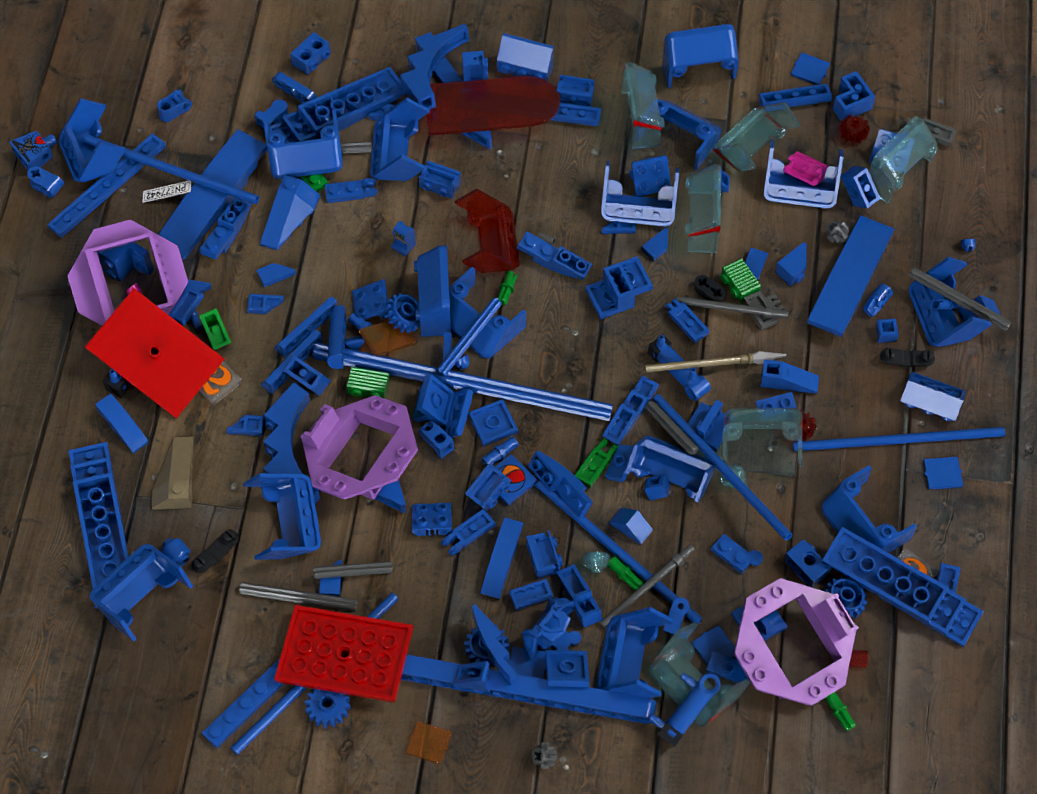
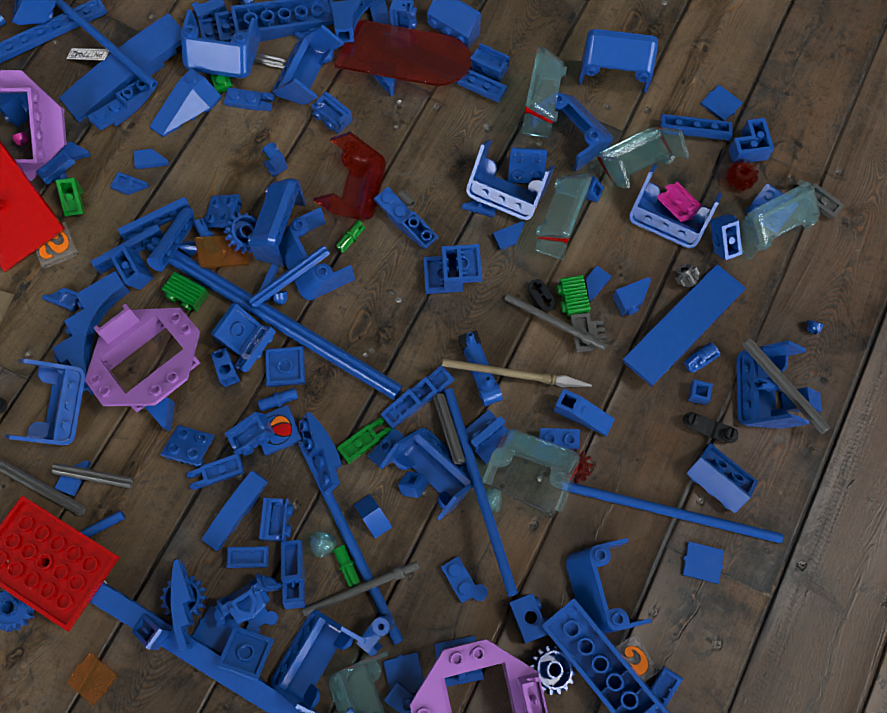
camera: 20 degrees right, 10 degrees up
(687, 320) = (507, 321): blue hinge -> none

